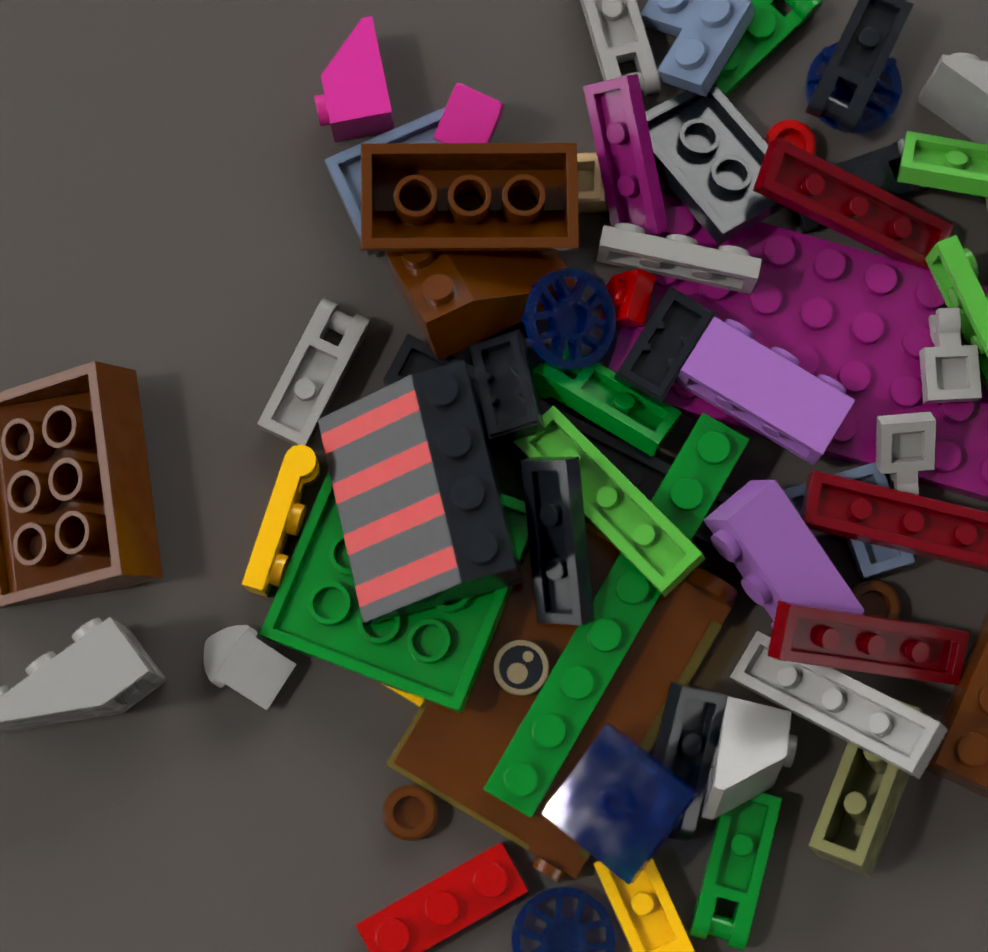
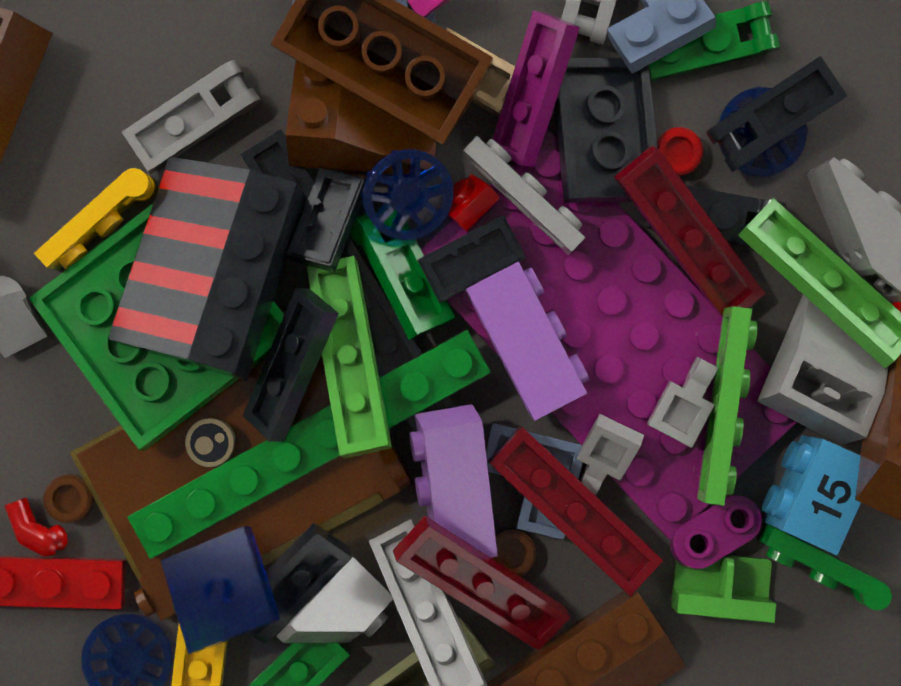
camera: 30 degrees right, 10 degrees up
(395, 870) = (34, 535): none -> red arm

